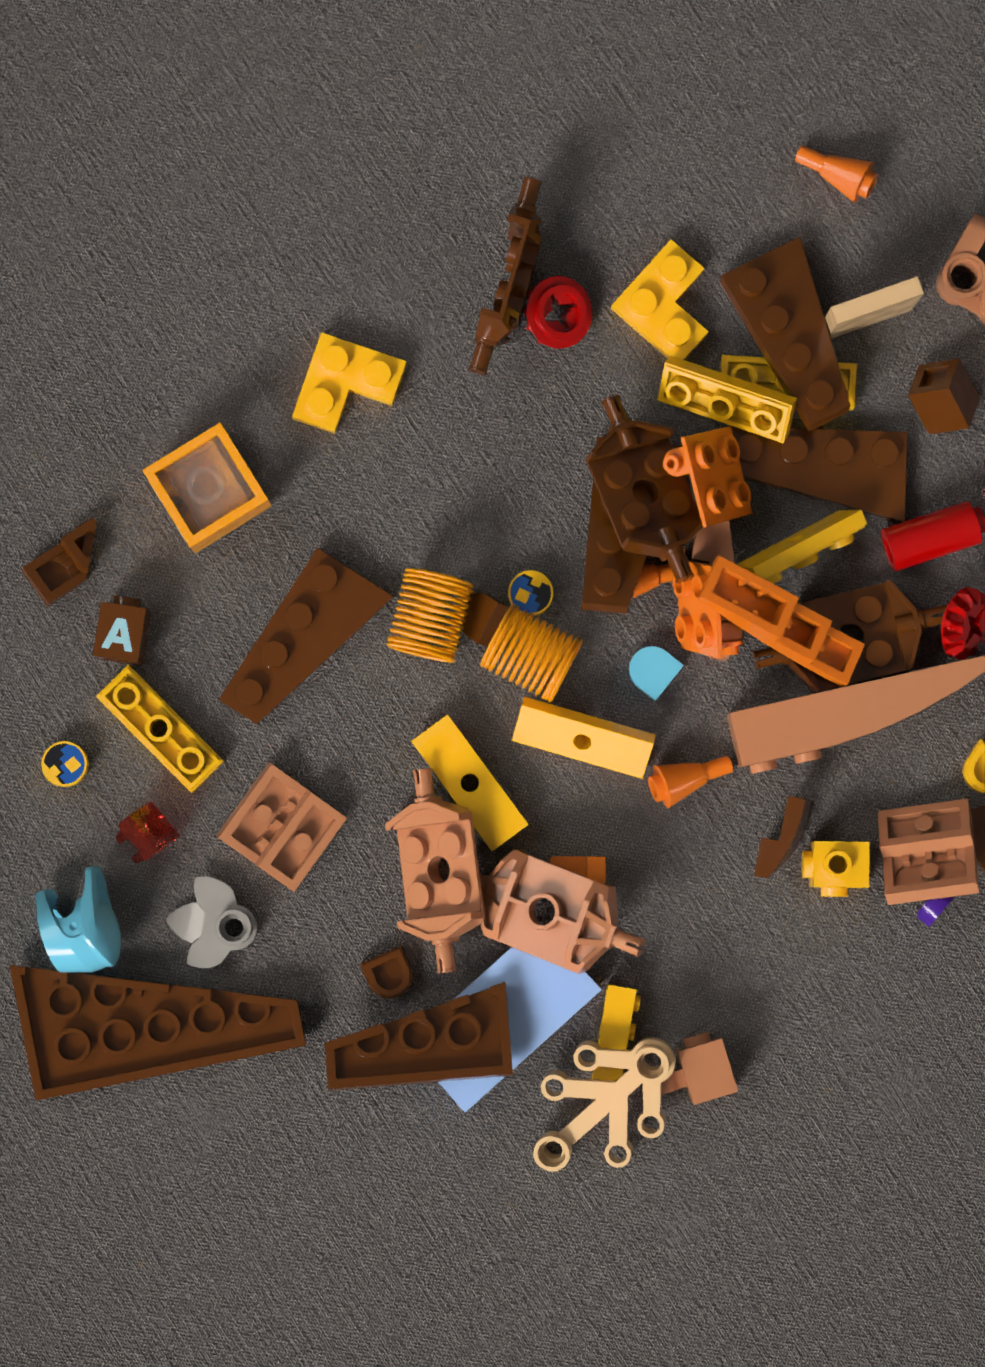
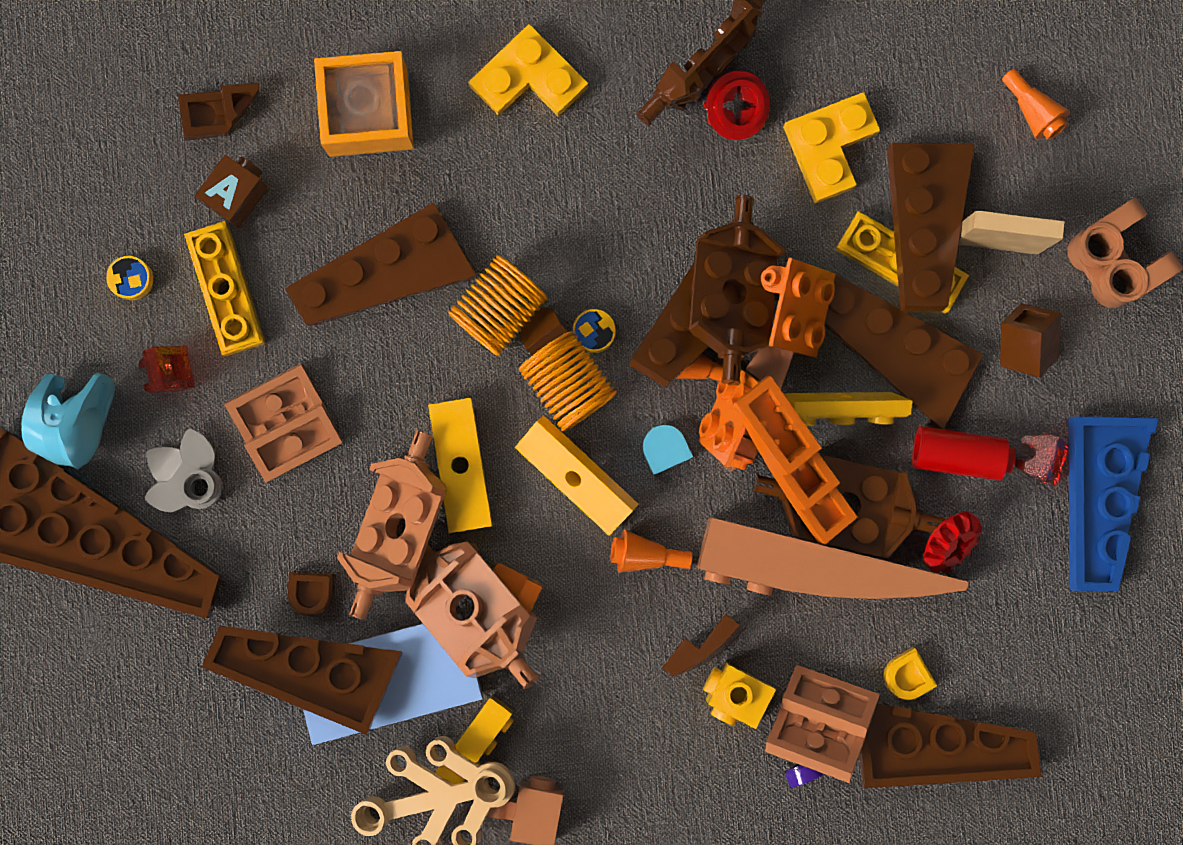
camera: 25 degrees right, 0 degrees up
(726, 399) = (860, 264): yellow tile -> none

